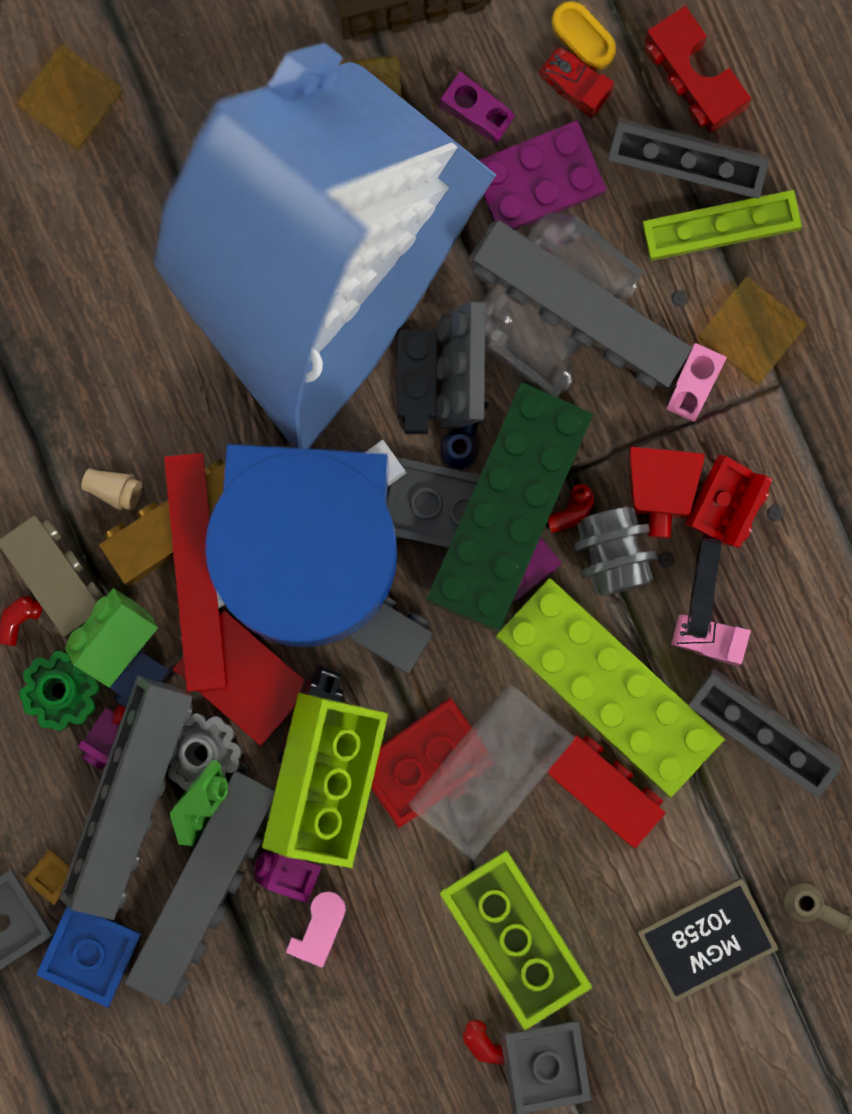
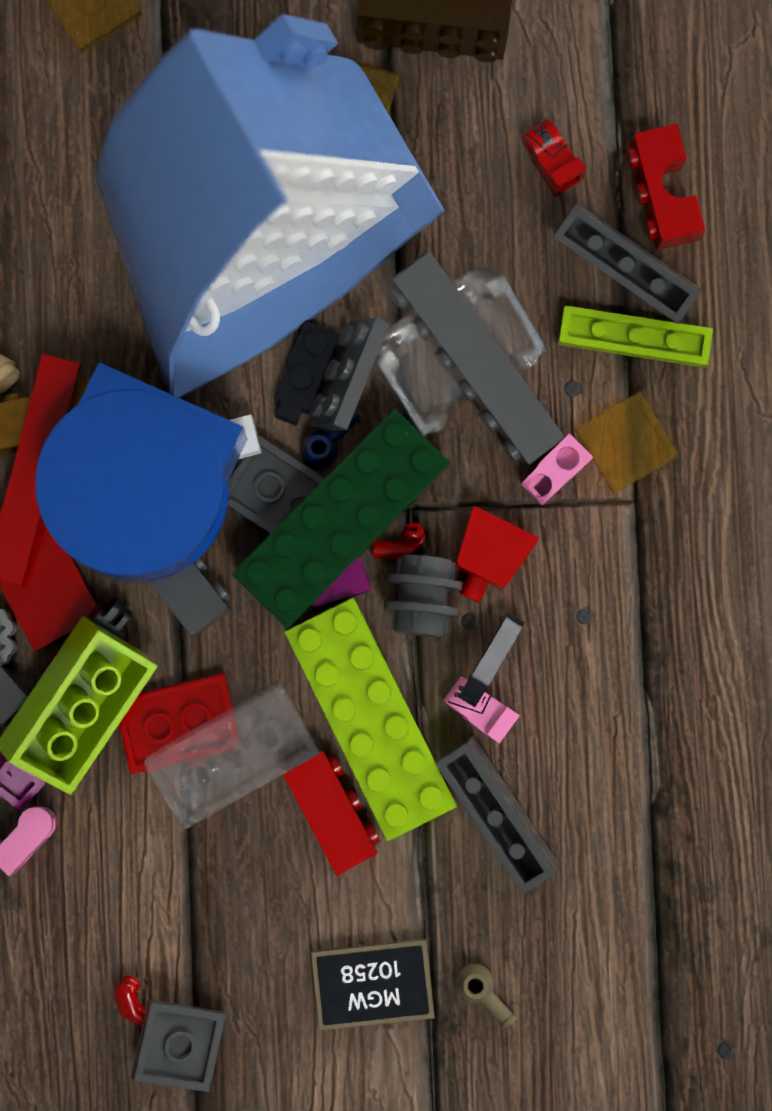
camera: 10 degrees right, 0 degrees up
(476, 108) = (452, 146): magenta leg -> none
(515, 940) = (195, 918): lime brick -> none
(542, 177) = (488, 232): magenta plate -> none
(583, 35) = (575, 118): yellow tile -> none
(729, 502) = (545, 590): red bracket -> none

